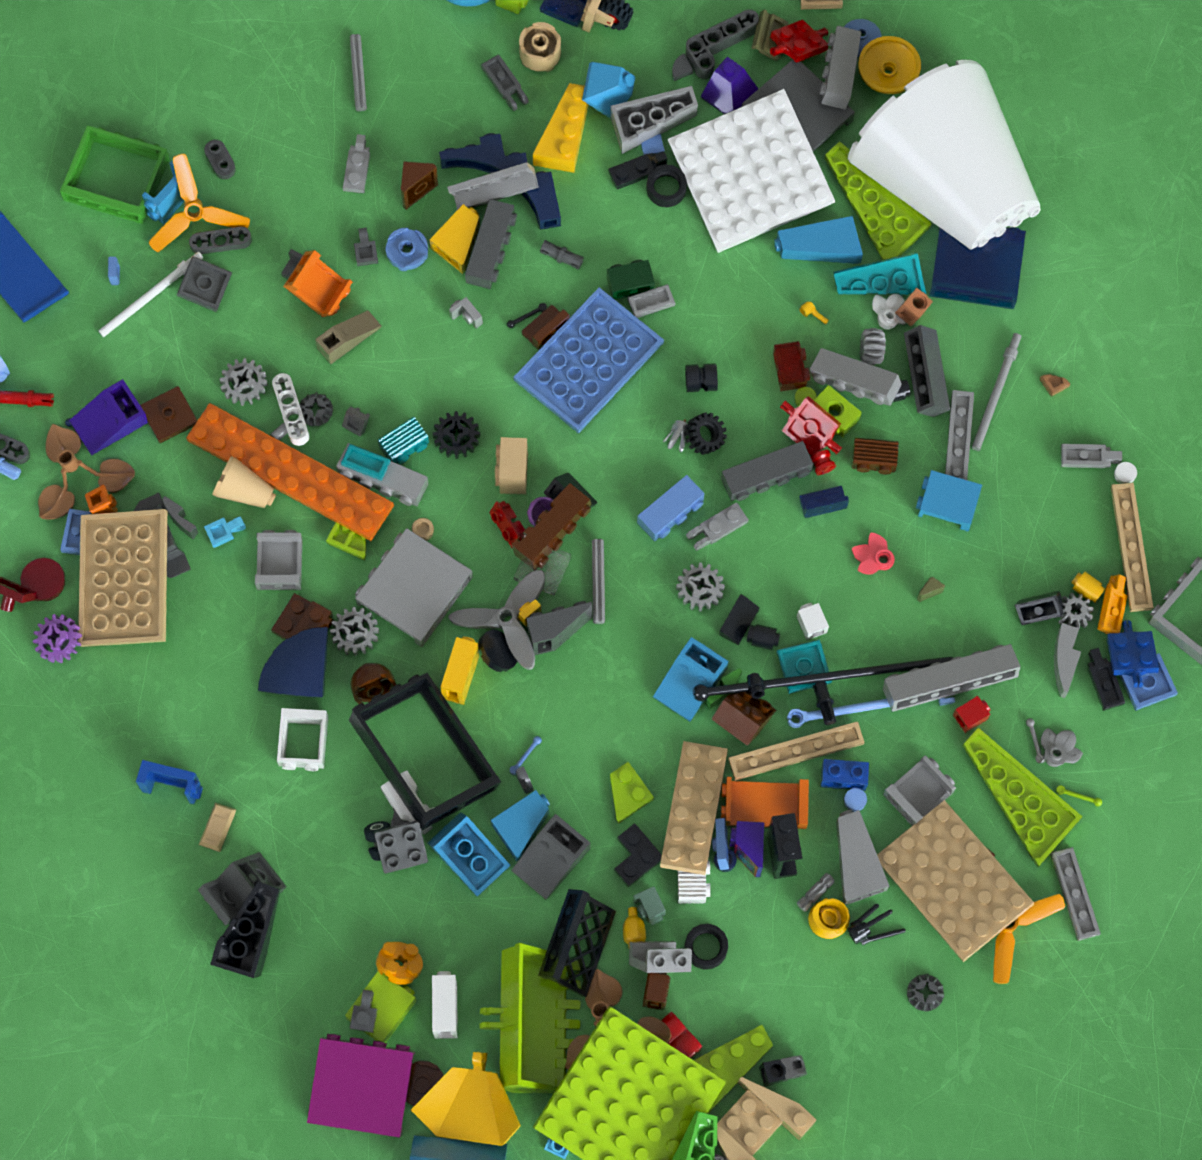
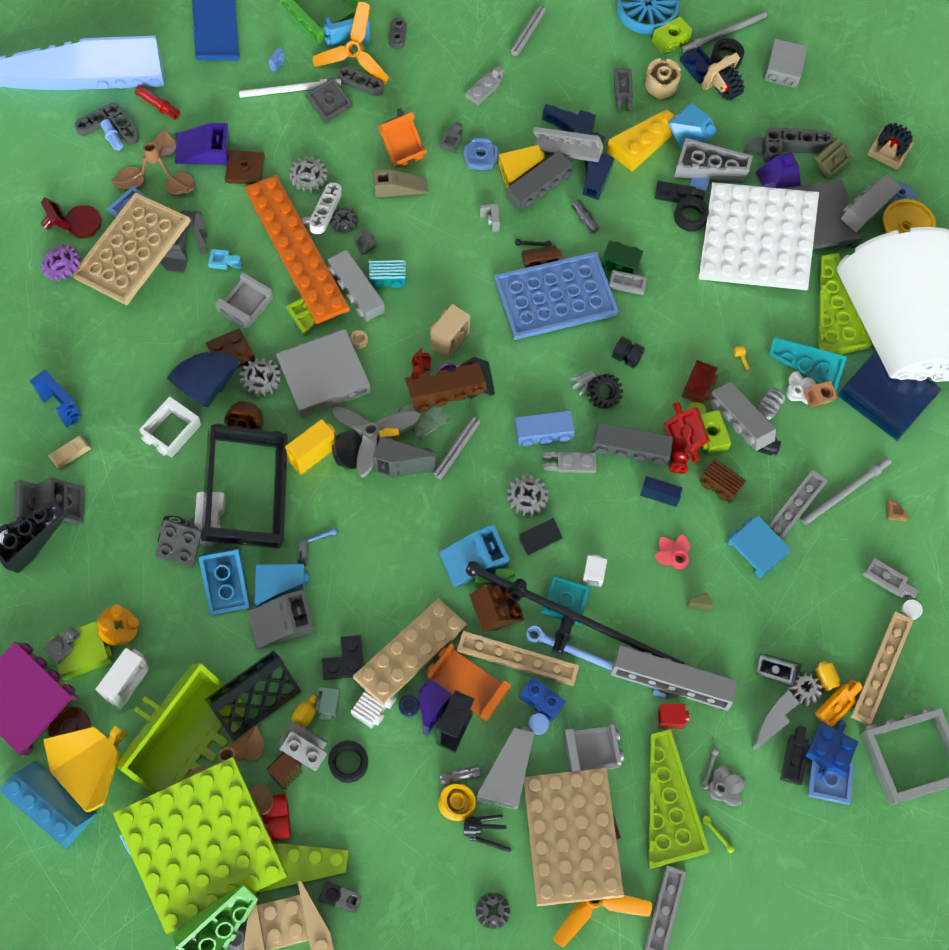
camera: 30 degrees right, 5 degrees down
(100, 502) = (155, 191): orange brick -> none
(243, 485) = (256, 236): tan cone -> none
(365, 462) = (348, 268): teal tile -> none
(417, 181) = (516, 114): reddish brown slope -> none
(466, 434) = (426, 289): black gear -> none
(628, 792) = (372, 610): lime wing -> none
(720, 844) = (411, 690): medium blue plate -> none
(763, 636) = (549, 559): black brick -> none
(799, 41) = (851, 171): red plate -> none
(821, 241) = (779, 311): dark azure slope -> none
(926, 371) = (800, 444): dark grey brick -> none

